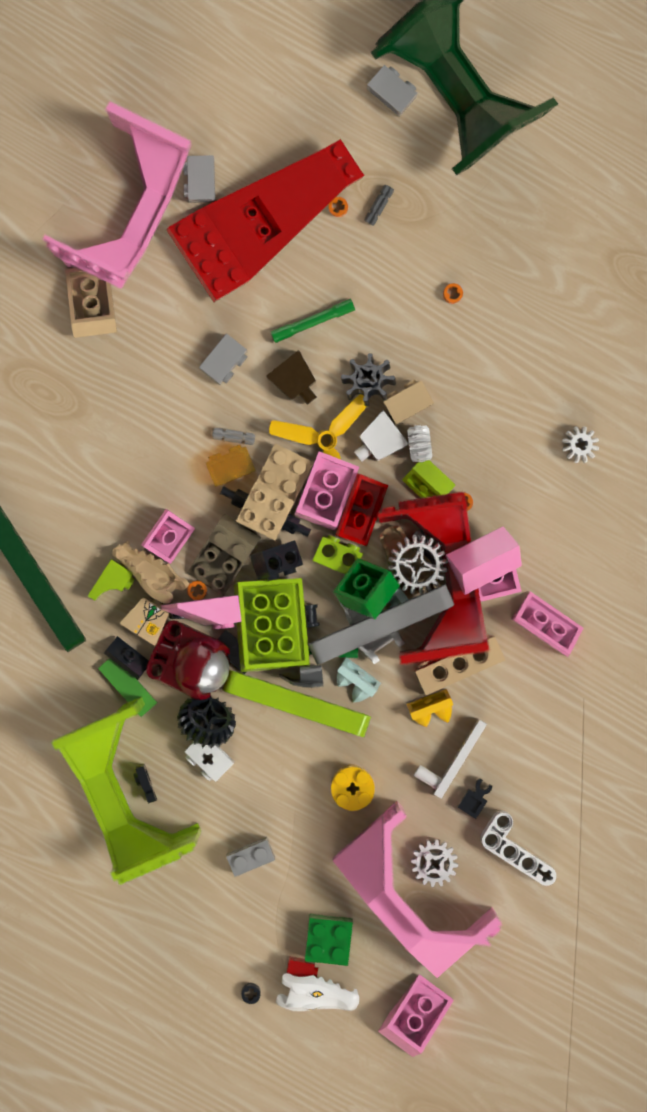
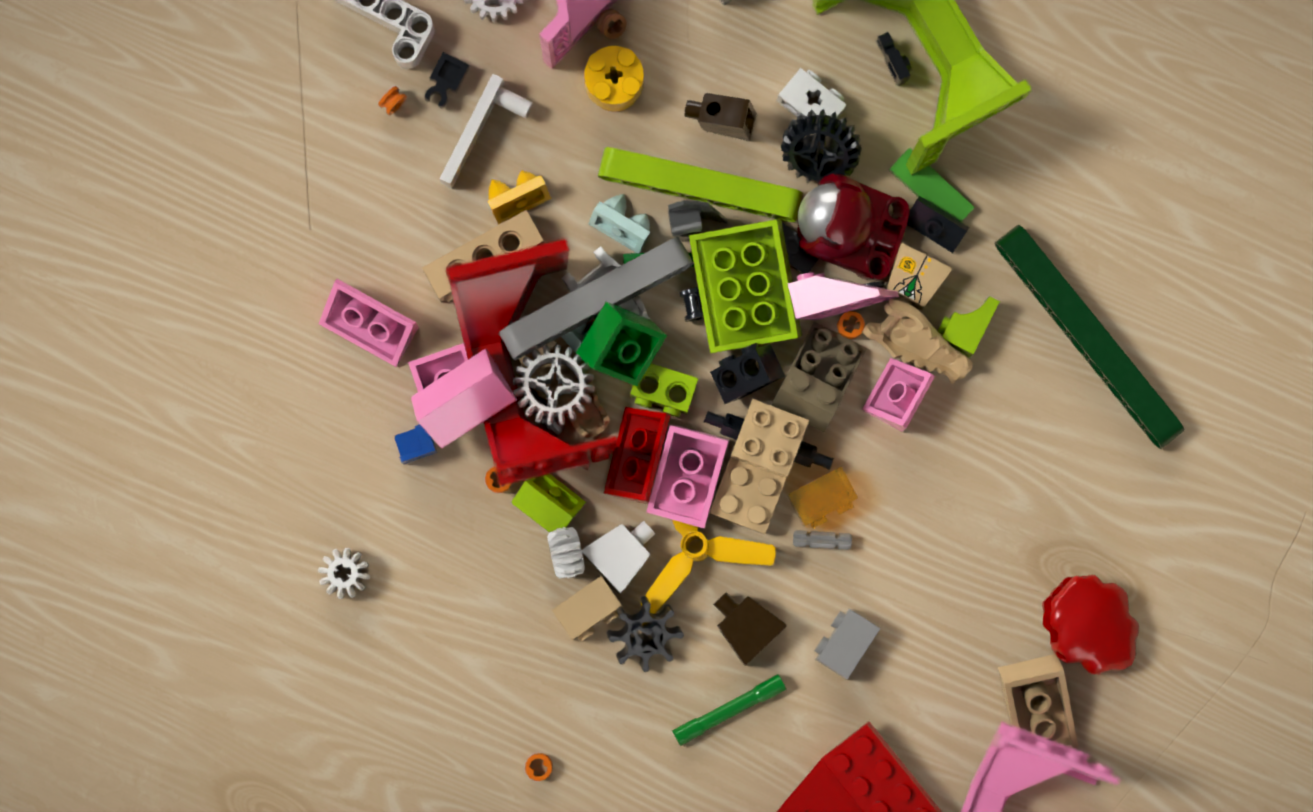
camera: 170 degrees right, 5 degrees down
(46, 356) = (1091, 624): none -> red piece
(267, 750) = (733, 119): none -> dark brown torso
(354, 833) = (619, 26): none -> nougat bush
(515, 786) = (392, 100): none -> orange bush
(522, 532) = (414, 444): none -> blue panel

